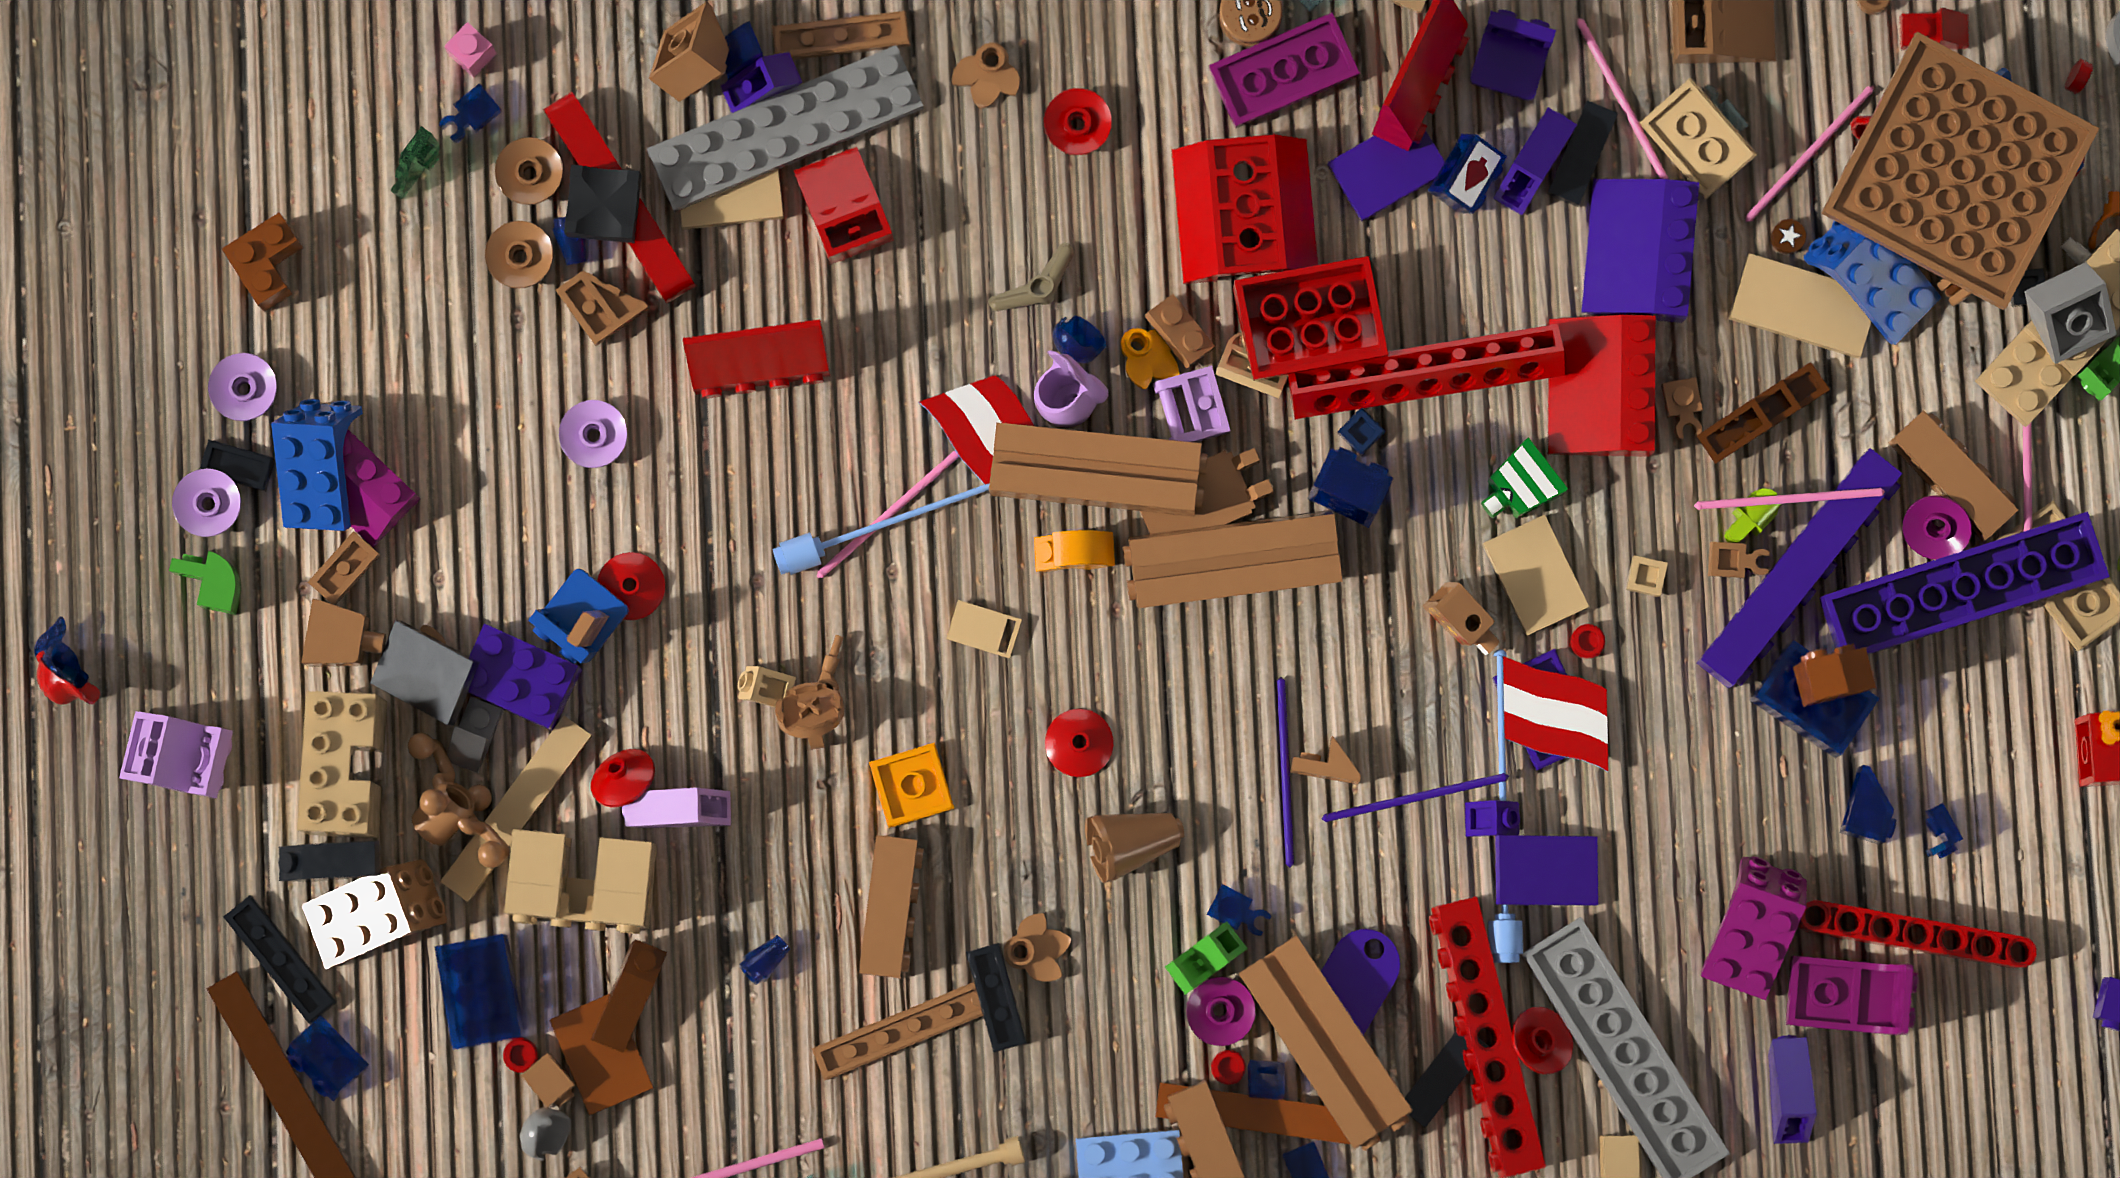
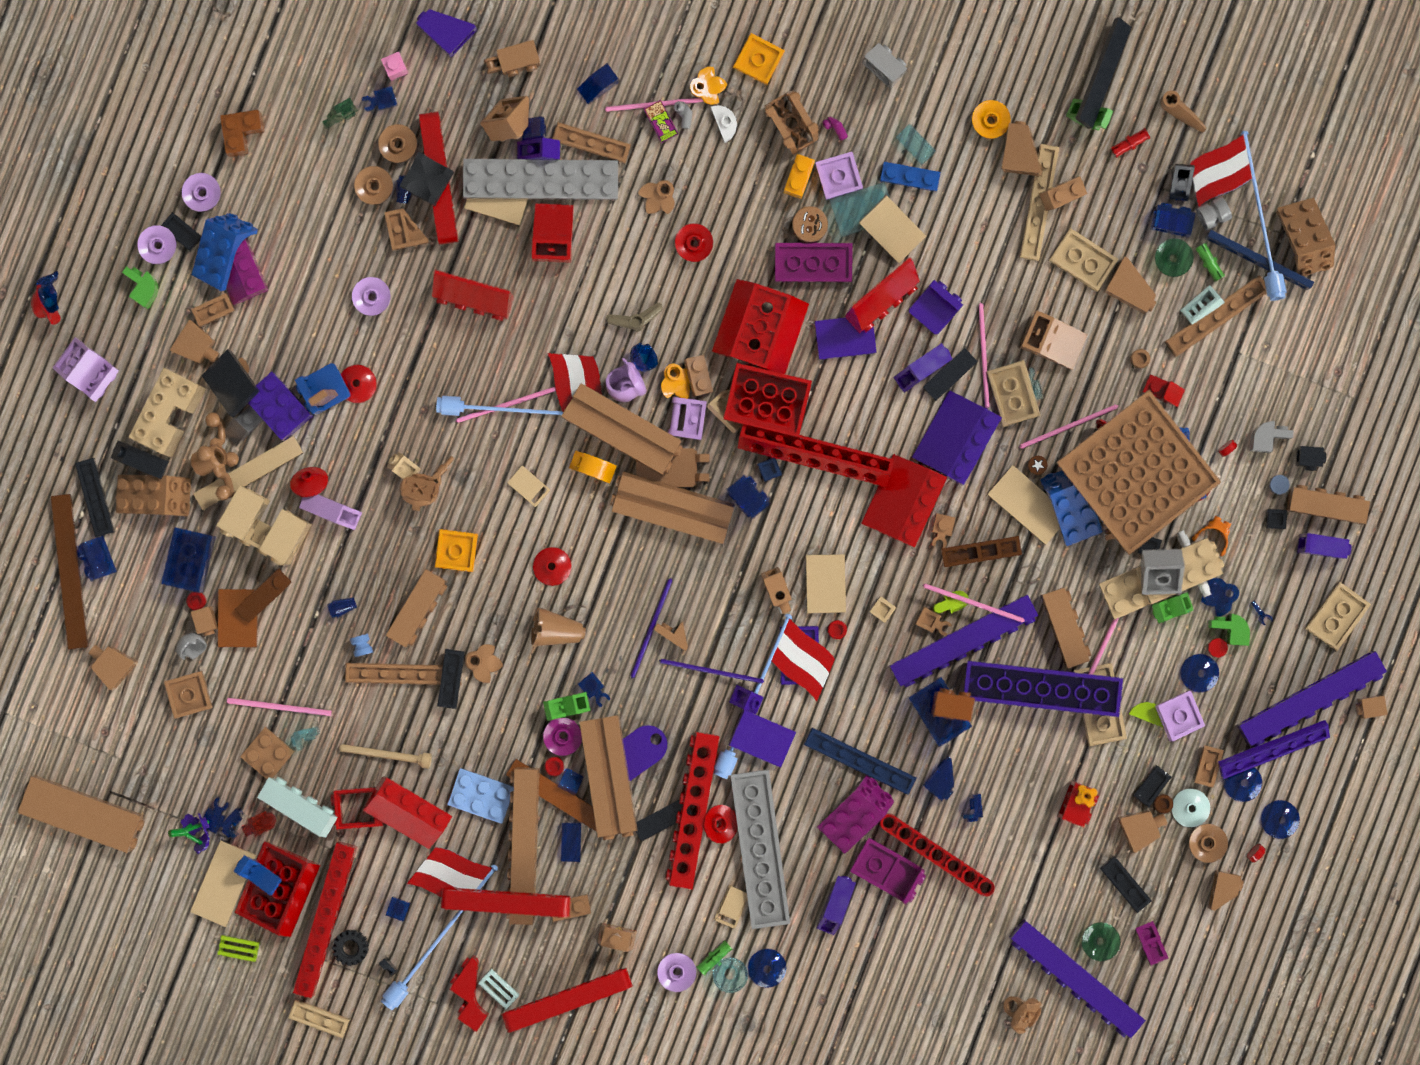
camera: 25 degrees right, 5 degrees up
(825, 1008) = (361, 646): none -> medium blue wheel
(1468, 174) = (884, 359): brick -> none
(1523, 483) = (840, 533): torso -> none
(1721, 838) = (860, 761): none -> dark blue tile
(1930, 539) = (1039, 655): magenta dish -> none

